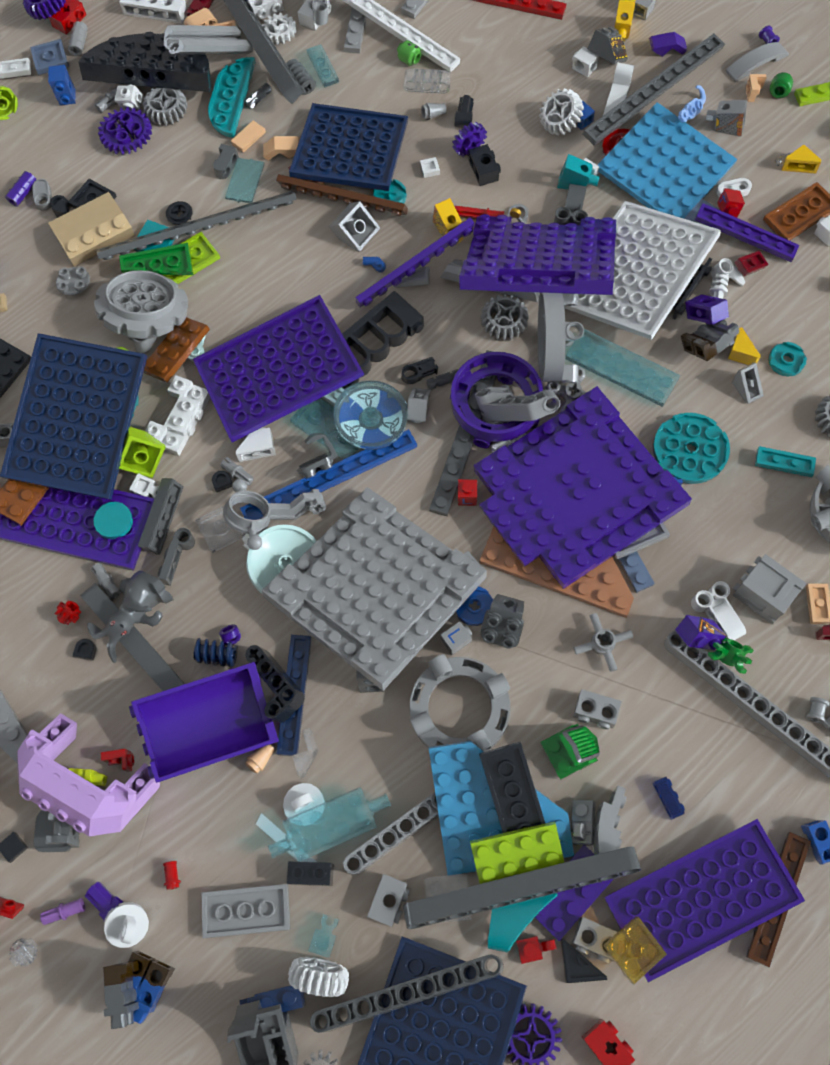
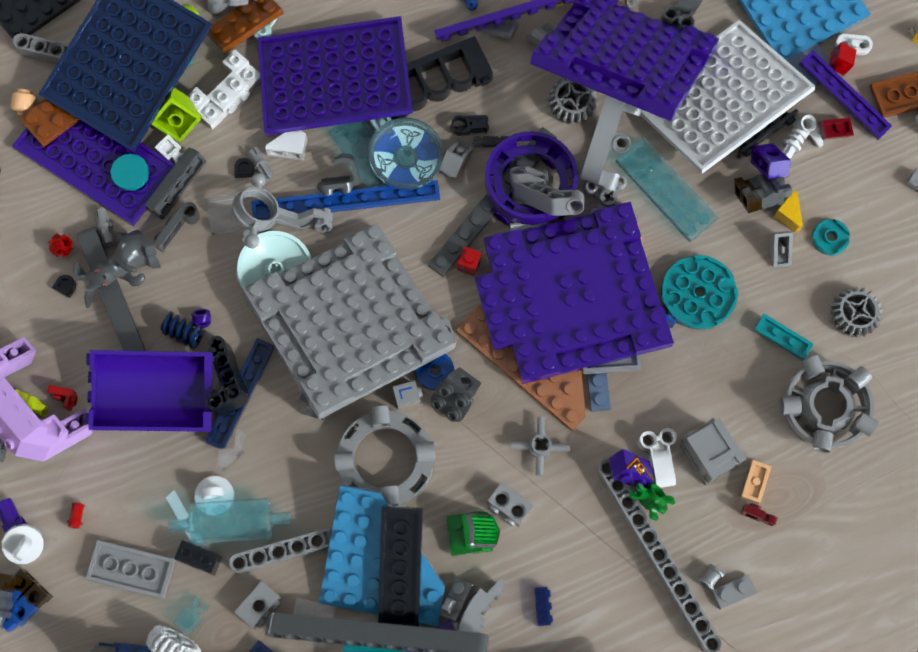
camera: 10 degrees right, 5 degrees up
(259, 759) = (189, 440): light nougat cone -> none
(517, 852) = (385, 603): lime plate -> none

